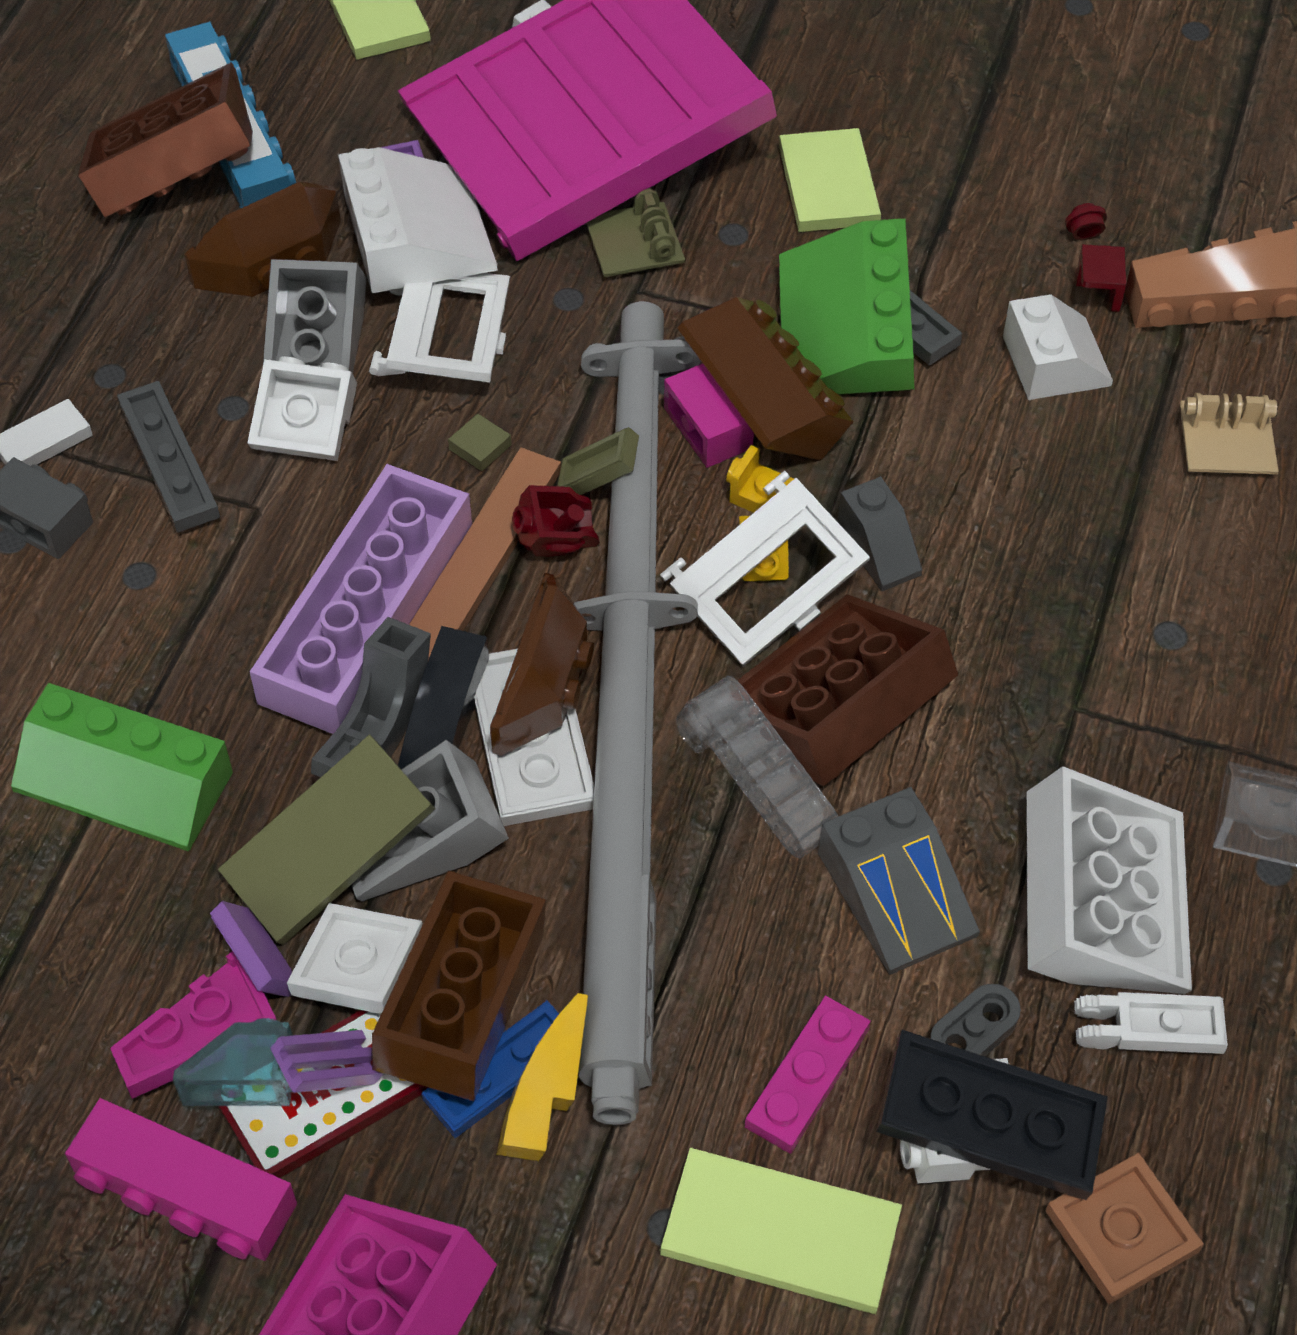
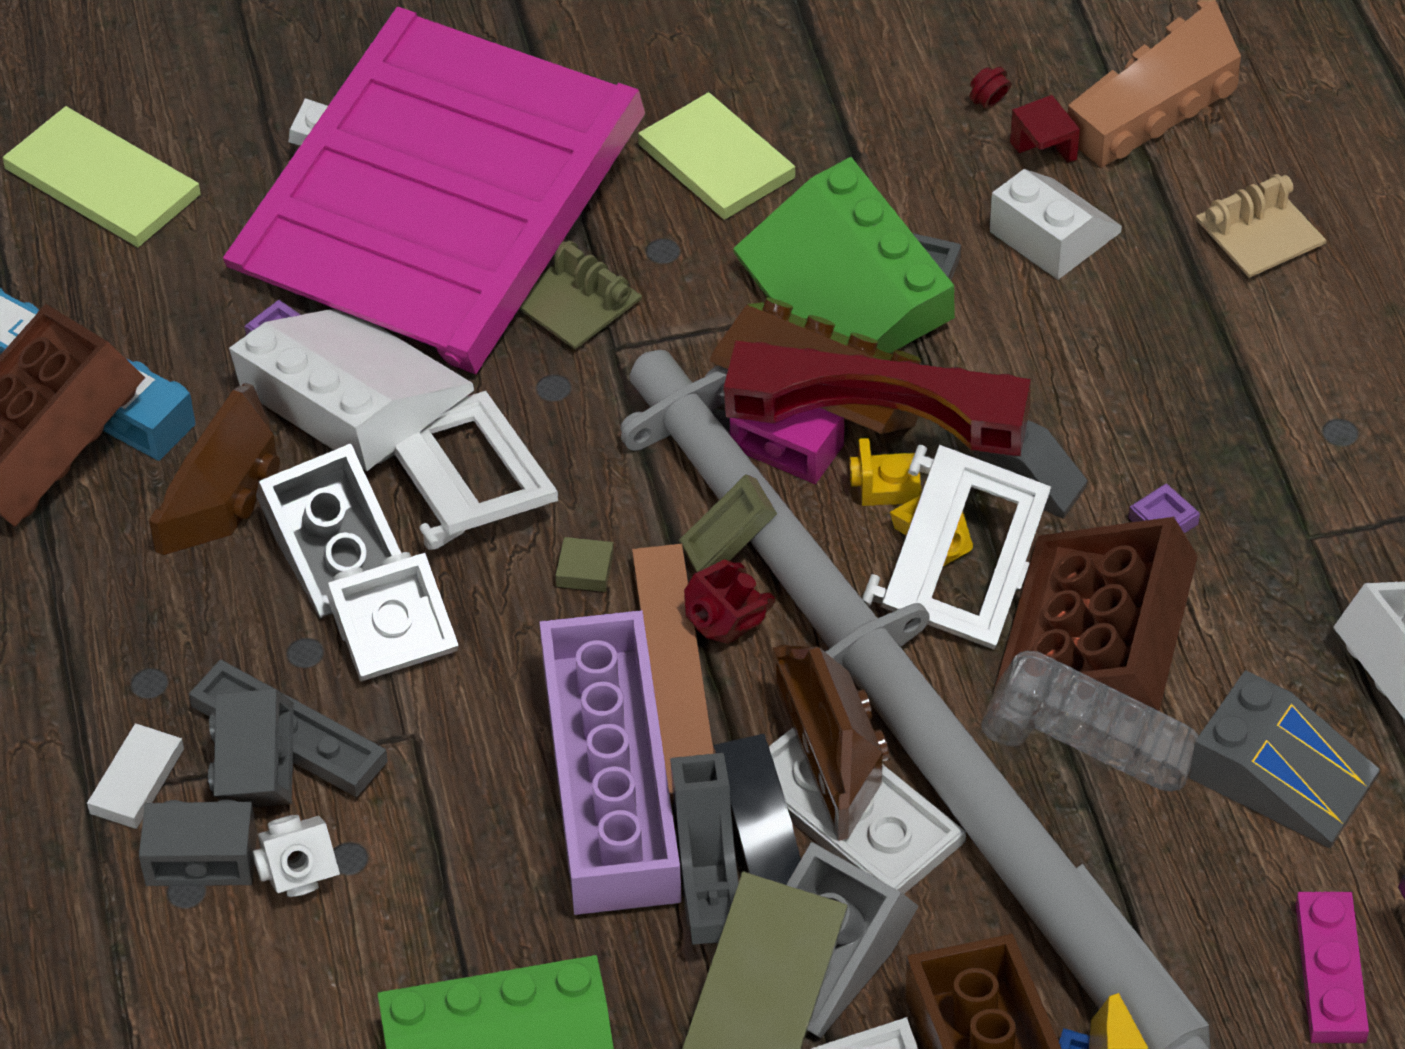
camera: 30 degrees left, 5 degrees down
(90, 551) = (313, 863): none -> white brick
(120, 456) = (252, 747): none -> dark grey brick
(705, 367) = (780, 381): none -> dark red arch
(965, 628) = (1162, 504): none -> medium lavender tile

